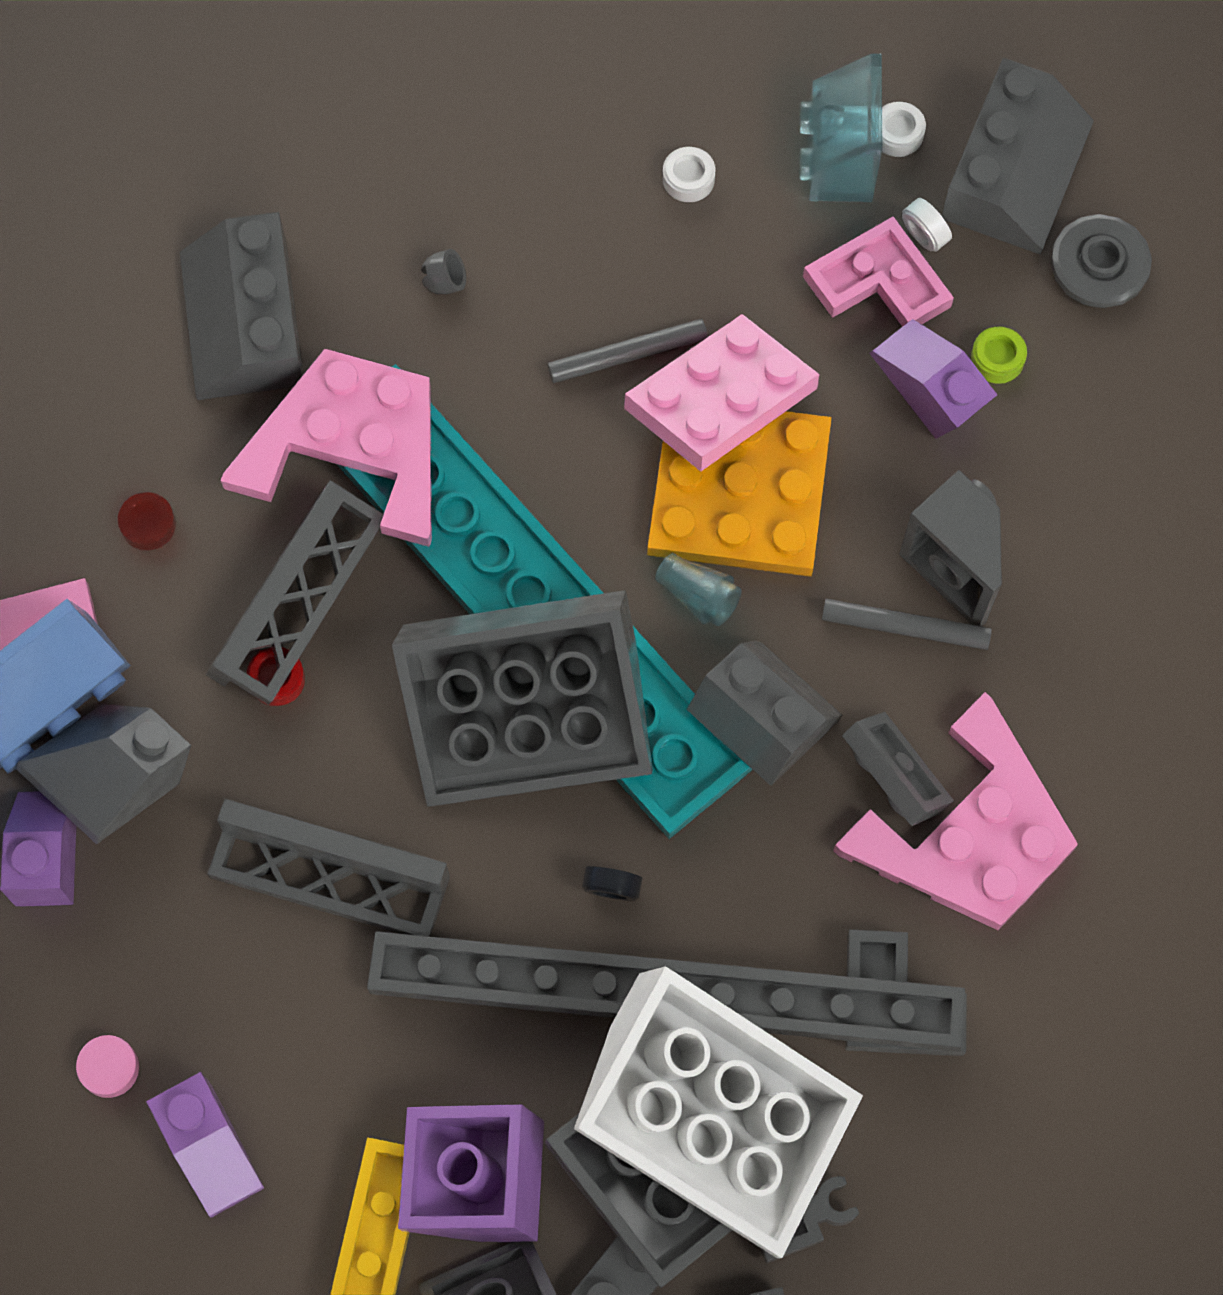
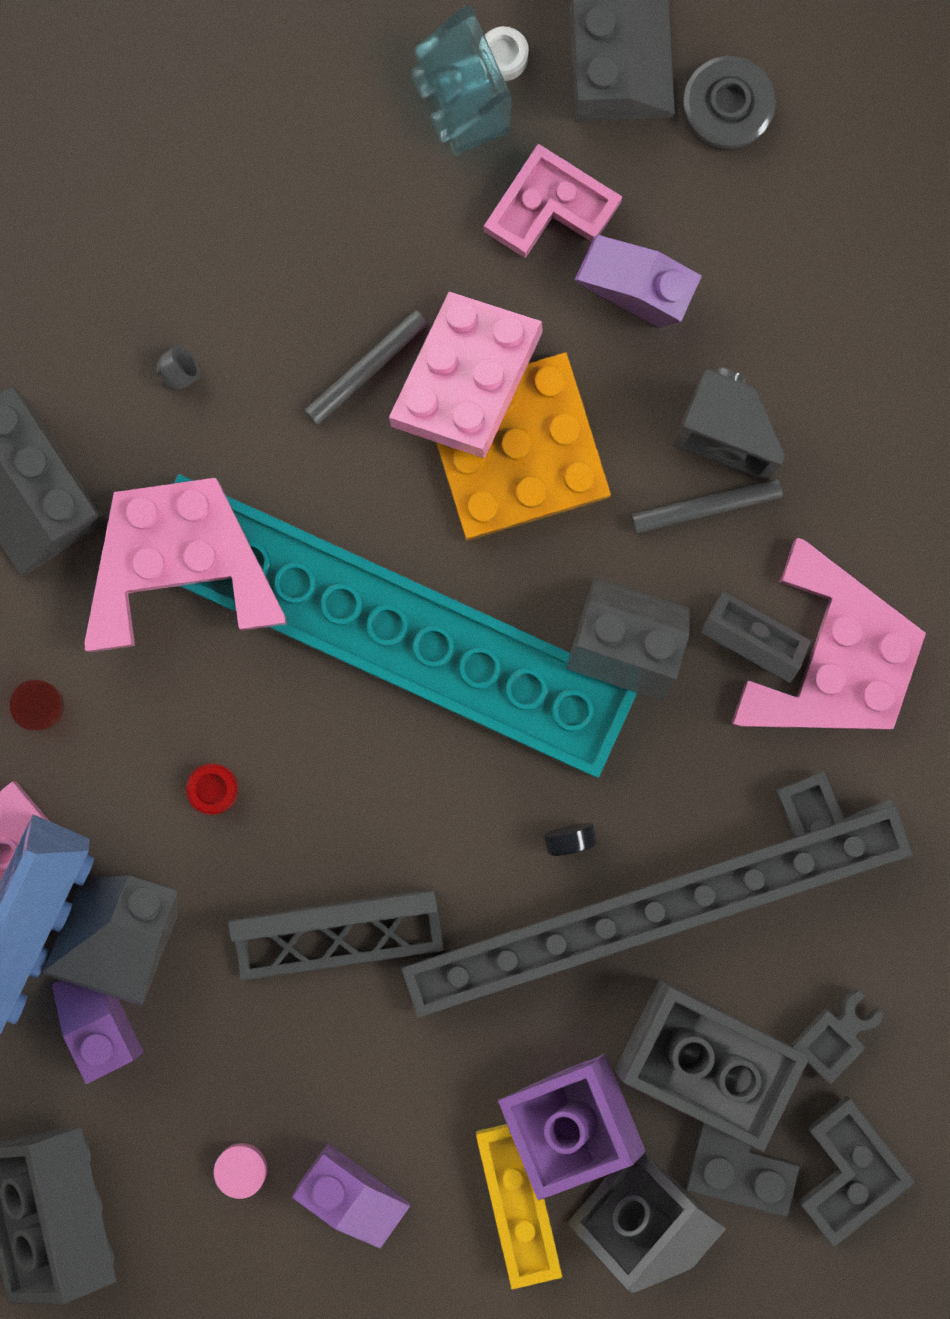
camera: 25 degrees left, 15 degrees up
(278, 582) = (176, 710): dark grey fence -> none
(524, 698) = (429, 721): dark grey slope -> none
(688, 174) = (342, 178): white tile -> none
(700, 589) = (526, 555): clear light blue cone -> none
(715, 1108) = (745, 1003): white slope -> none
(926, 225) = (569, 137): white tile -> none
(999, 354) = (679, 228): lime tile -> none

